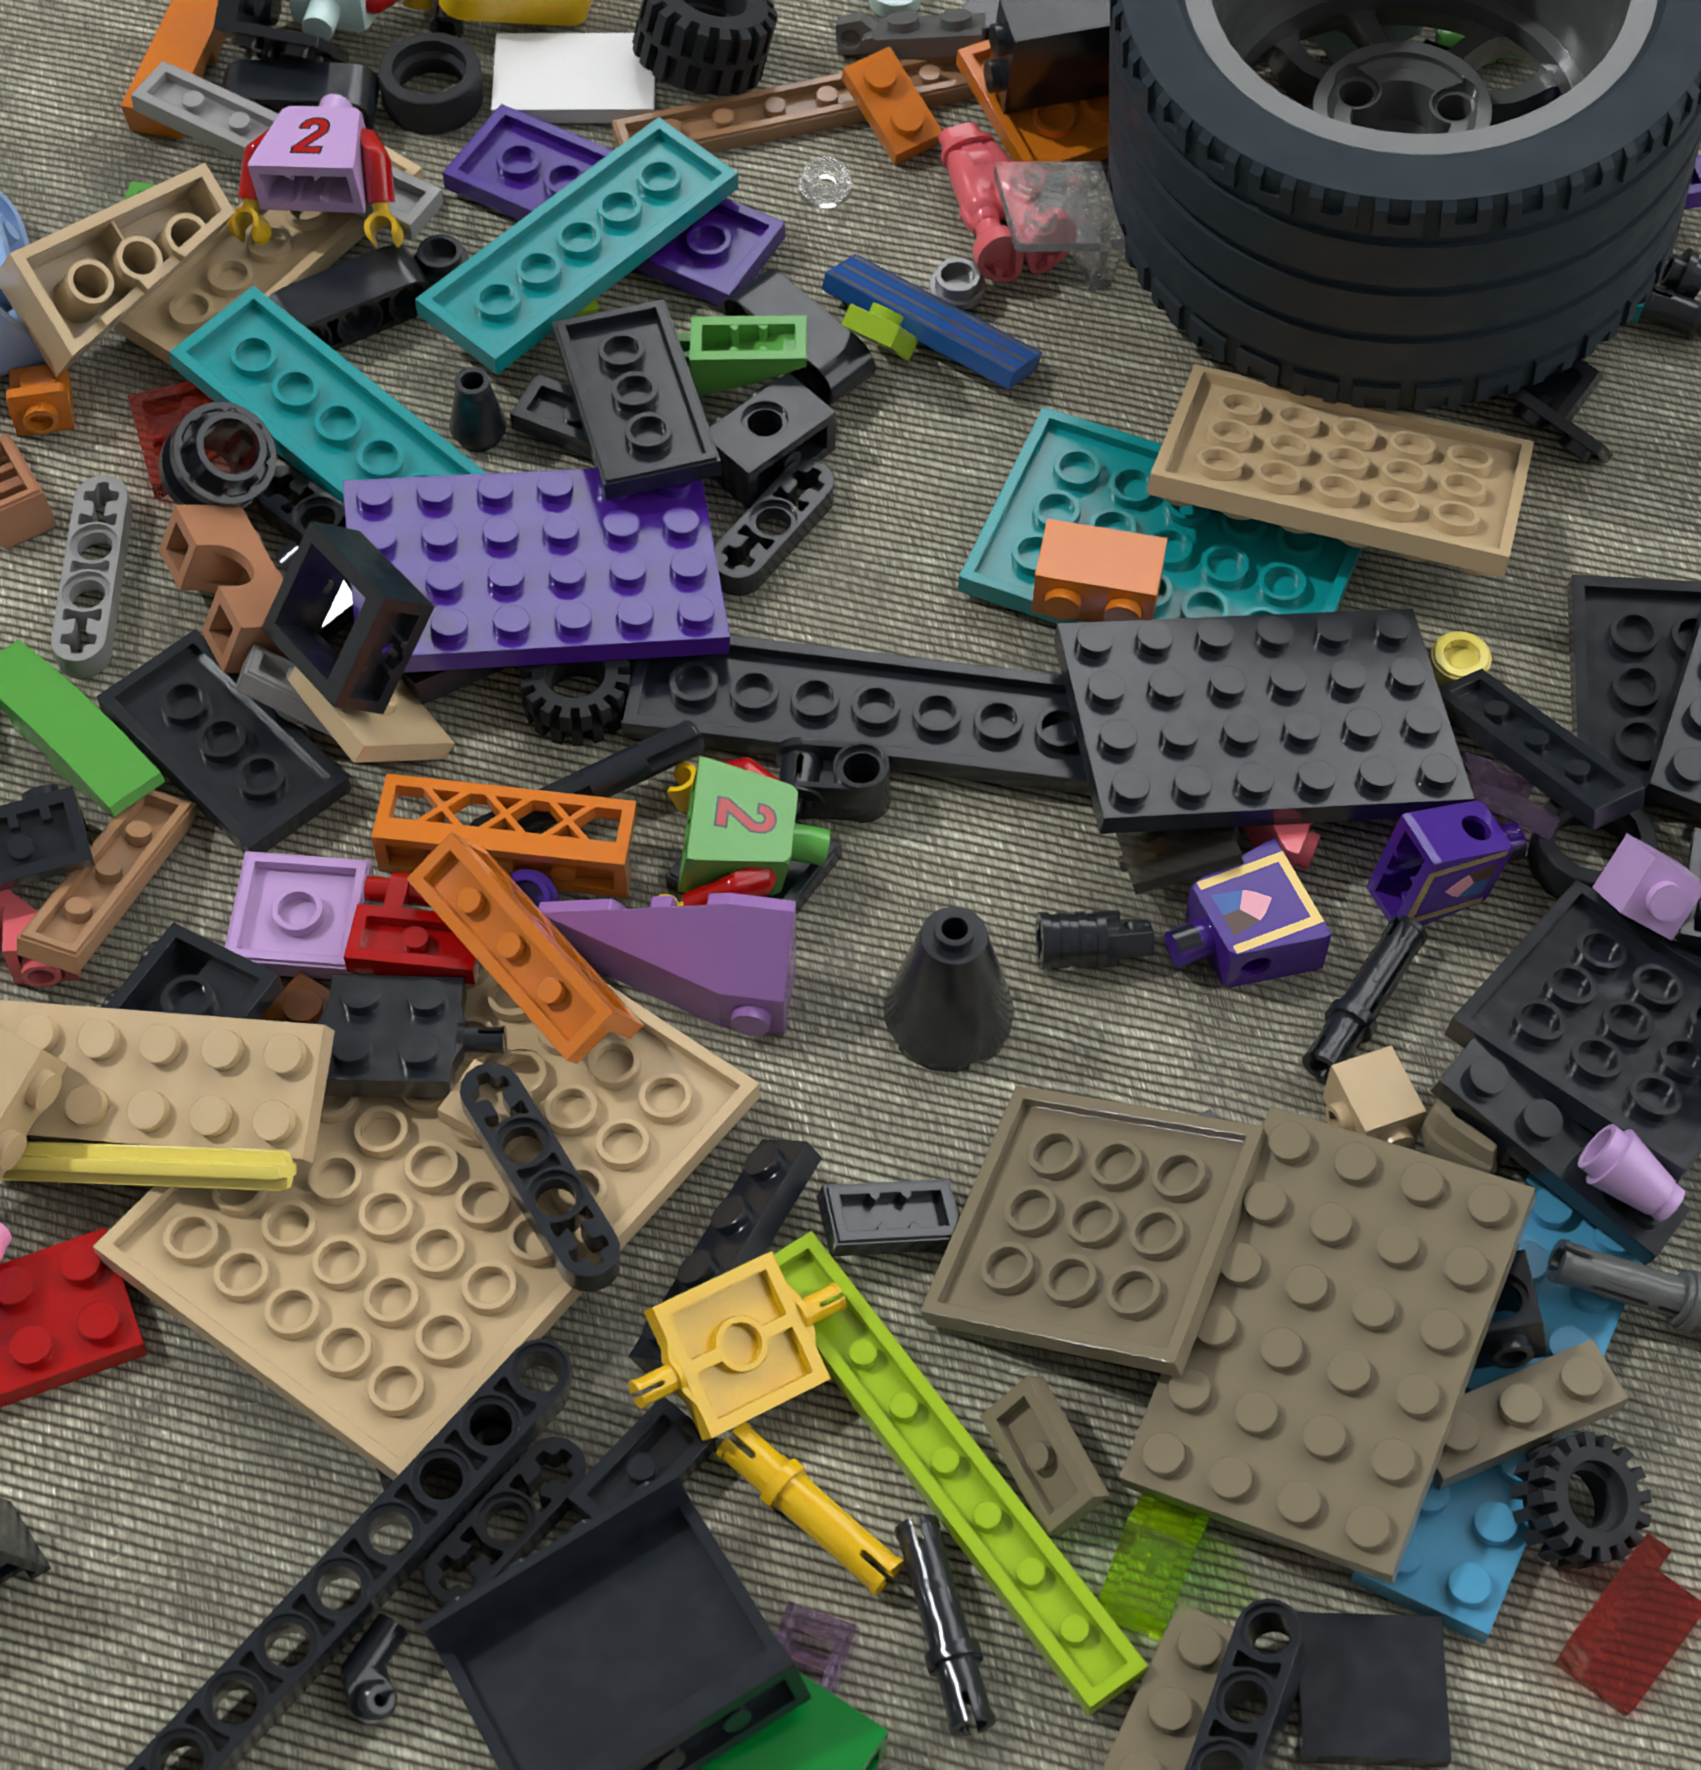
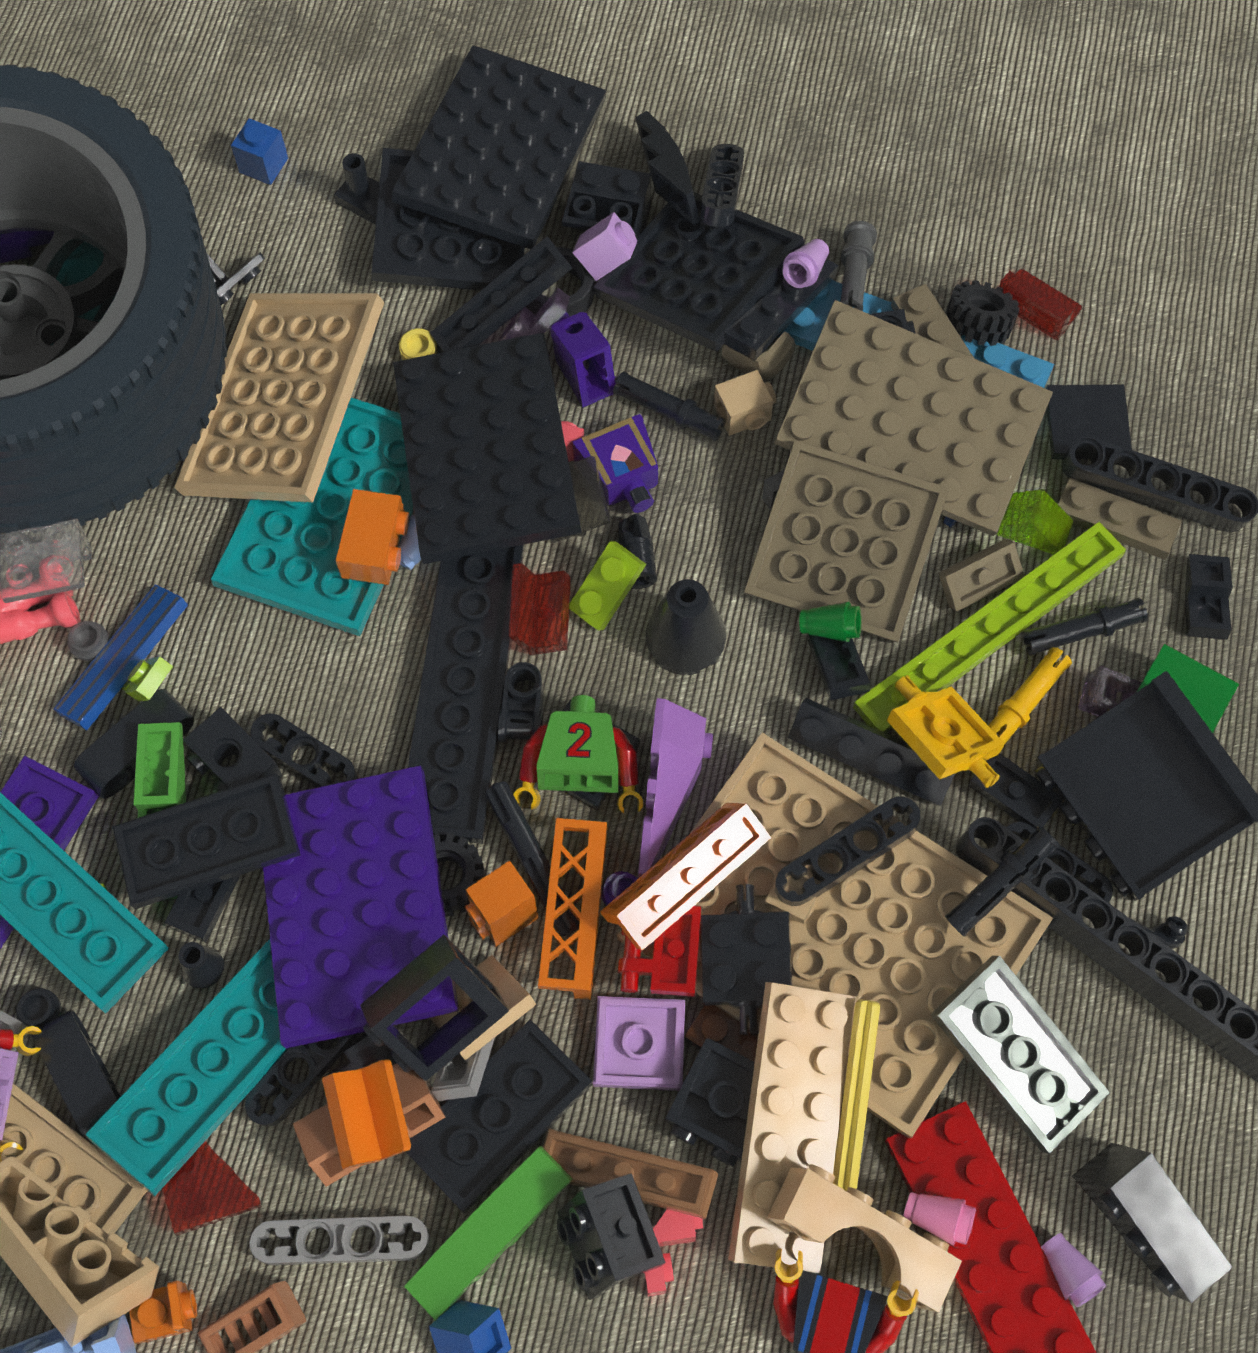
camera: 90 degrees left, 10 degrees up
(188, 1406) = (1020, 1054): none -> piece
(222, 552) = (366, 1114): none -> orange panel
(233, 435) = (256, 1143): black piece -> none
(468, 1391) = (995, 887): none -> black pin
(510, 728) = (501, 904): none -> orange brick
(948, 1202) = (832, 621): none -> green cone
(988, 797) = (539, 610): none -> clear red panel
(1024, 887) = (606, 585): none -> lime plate

